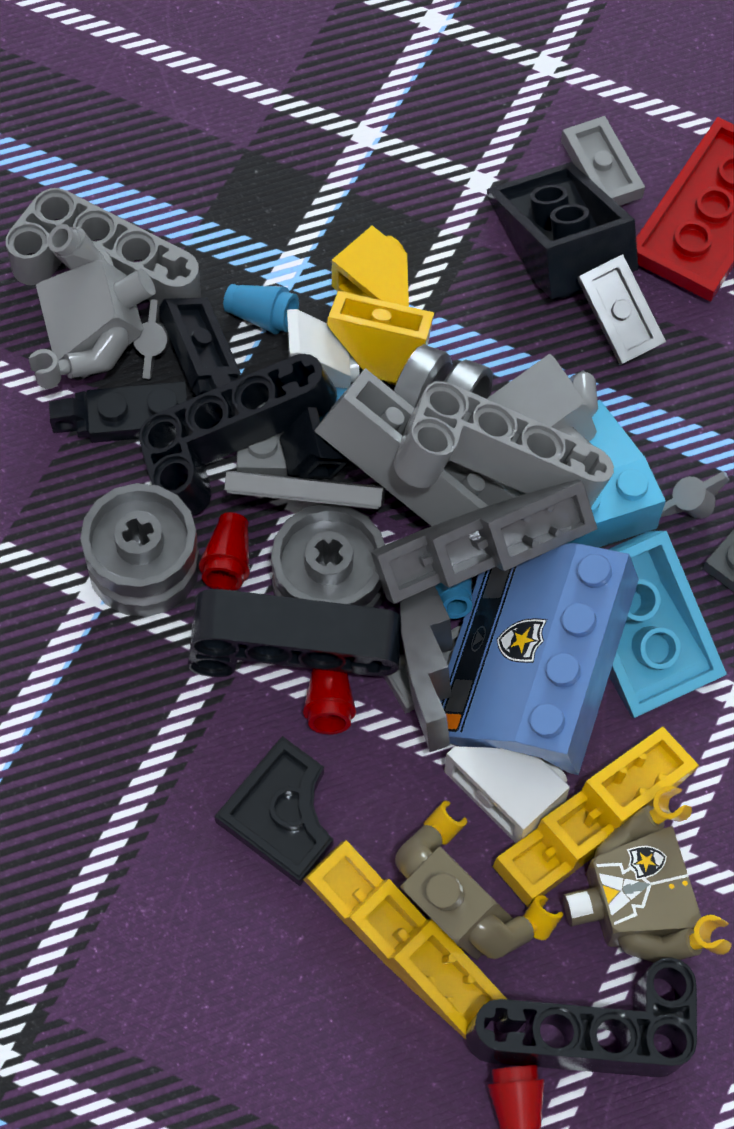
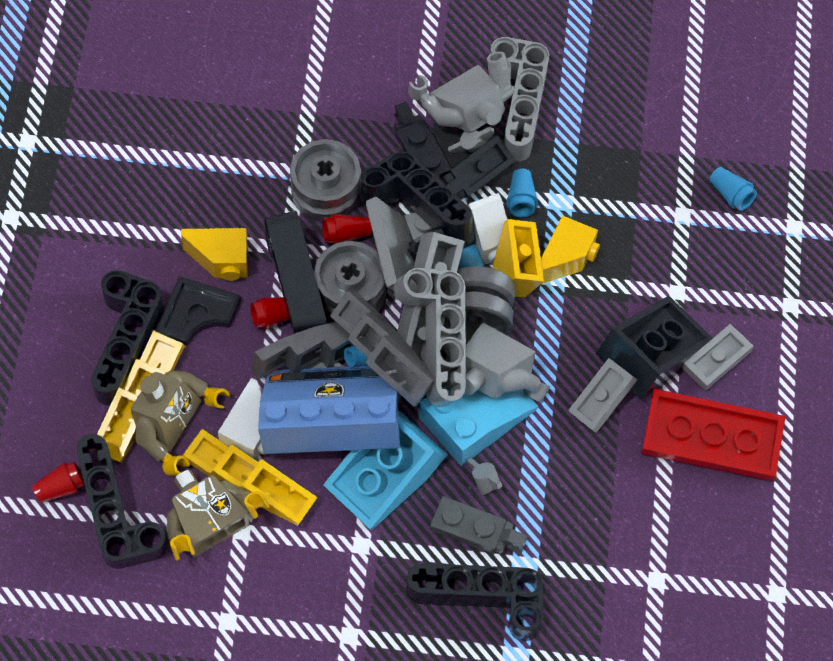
camera: 70 degrees right, 0 degrees up
(199, 740) = (218, 251): none -> yellow slope
(297, 933) = (121, 340): none -> black beam
(357, 59) = (734, 189): none -> dark azure cone

